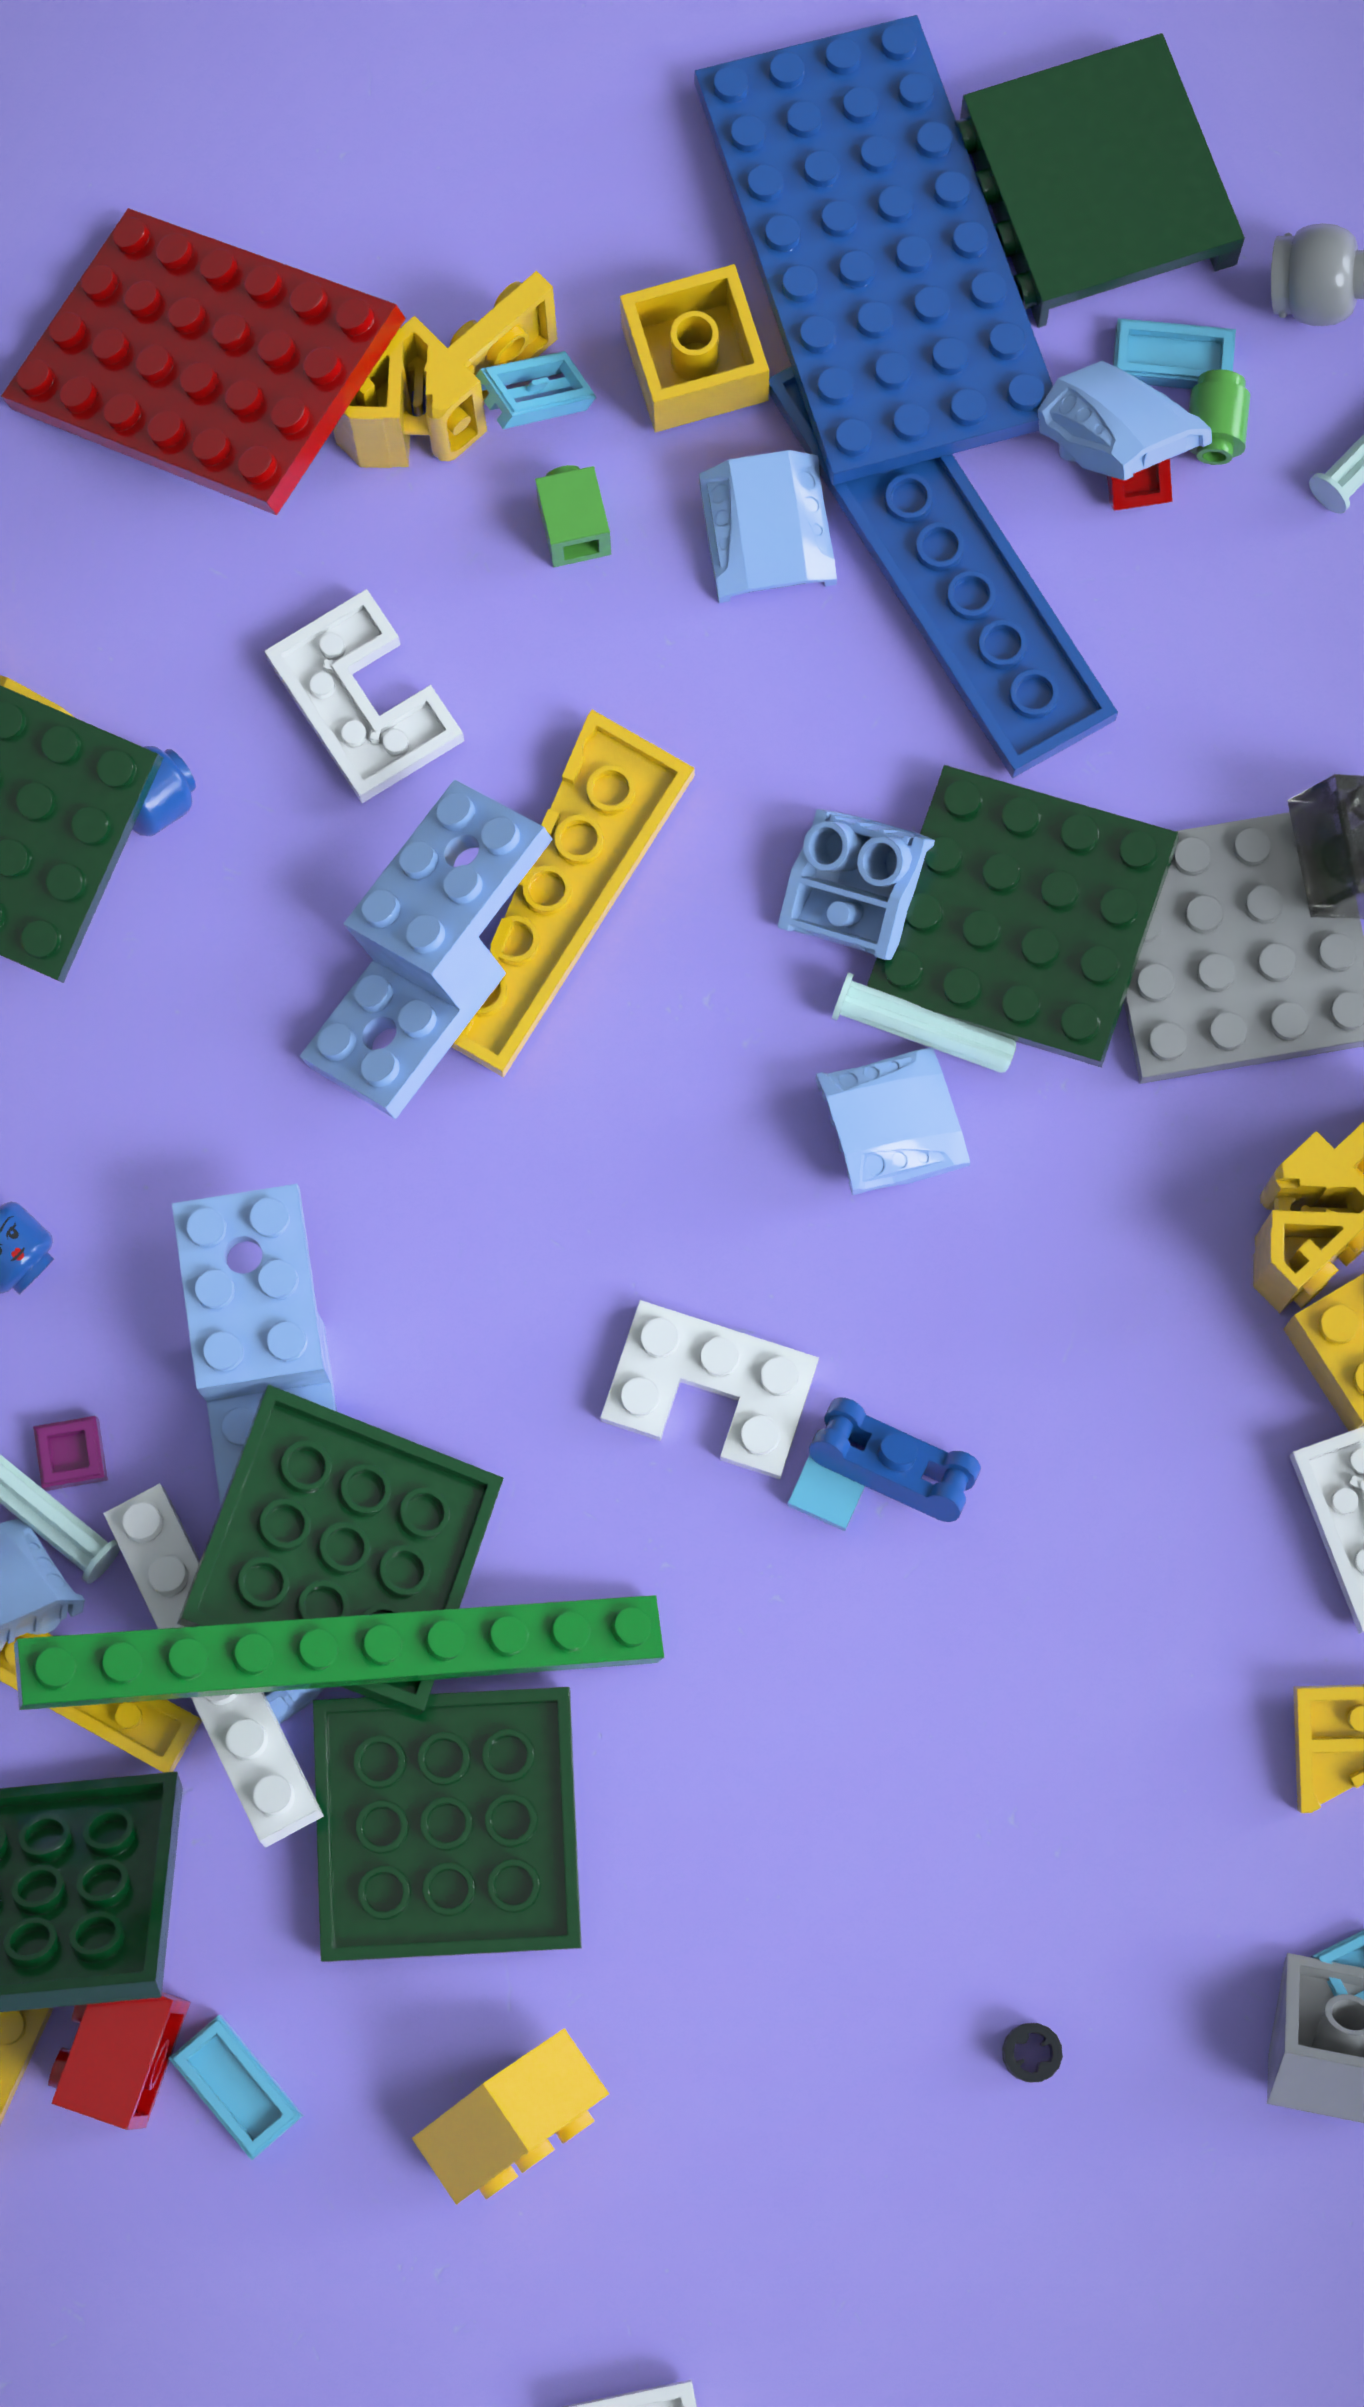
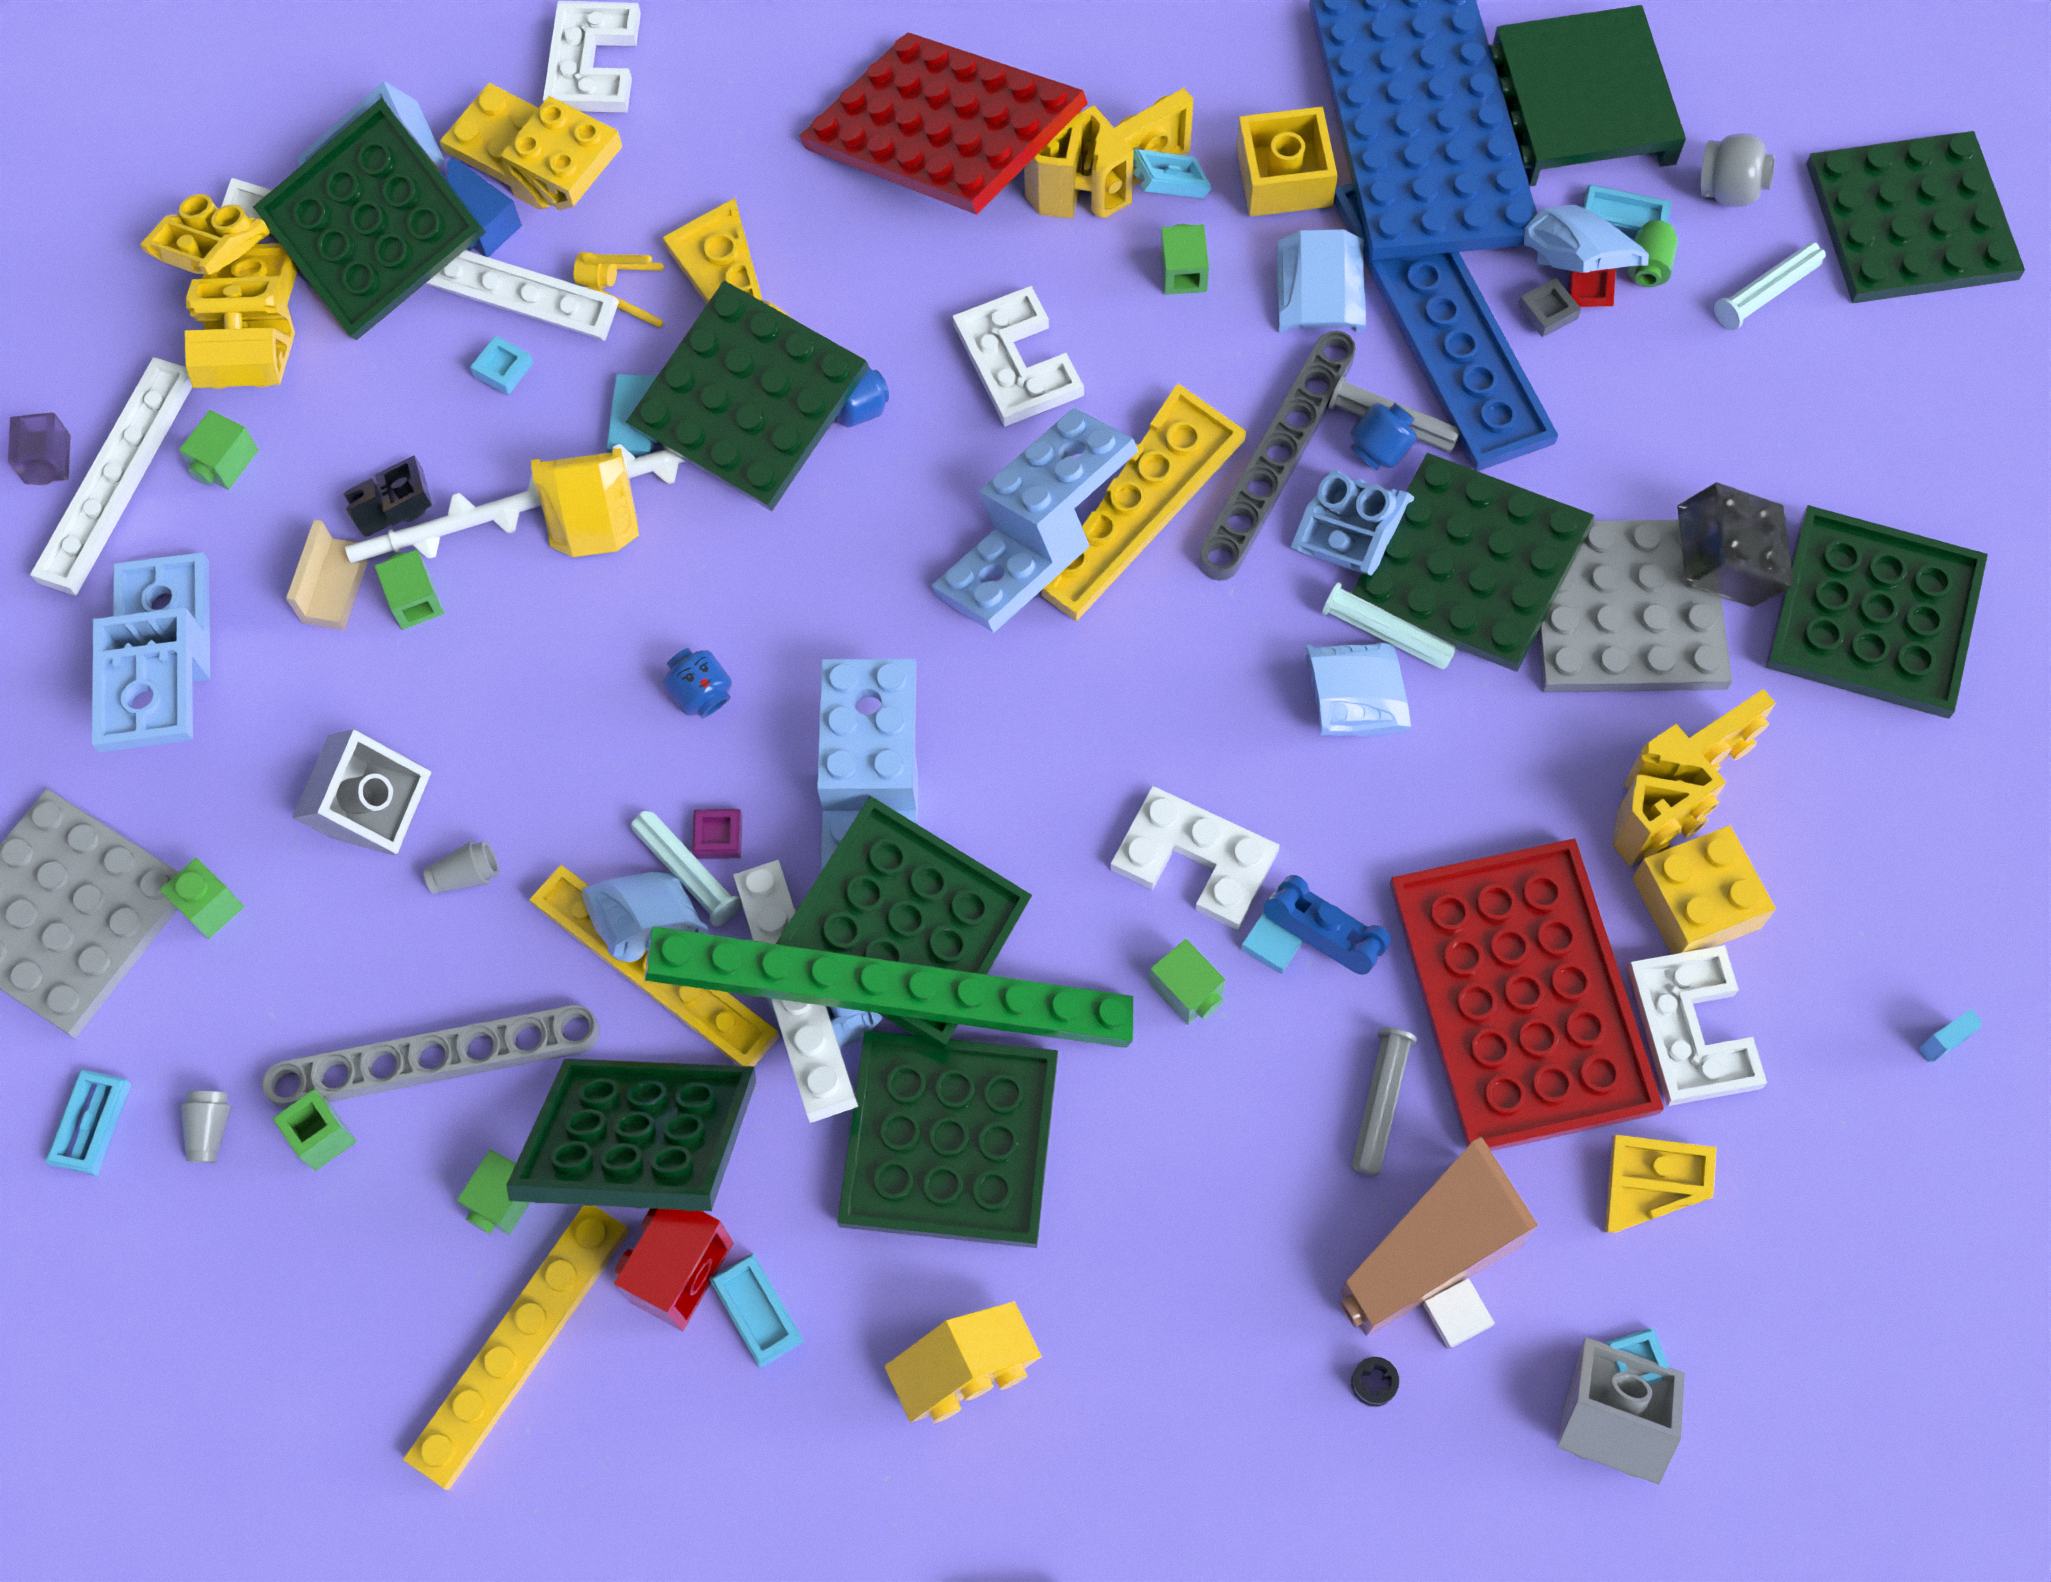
camera: 10 degrees right, 10 degrees down
(725, 1568) = (1188, 982): none -> bright green brick
(742, 819) = (1274, 472): none -> dark grey beam
(881, 749) = (1383, 435): none -> blue head
(893, 712) = (1426, 427): none -> light grey axle
(995, 1686) = (1382, 1100): none -> light grey axle
(1084, 518) = (1549, 307): none -> dark grey plate
(1096, 1860) = (1448, 1236): none -> nougat slope
(1126, 1948) = (1458, 1313): none -> white tile
(1160, 1515) = (1524, 996): none -> red plate

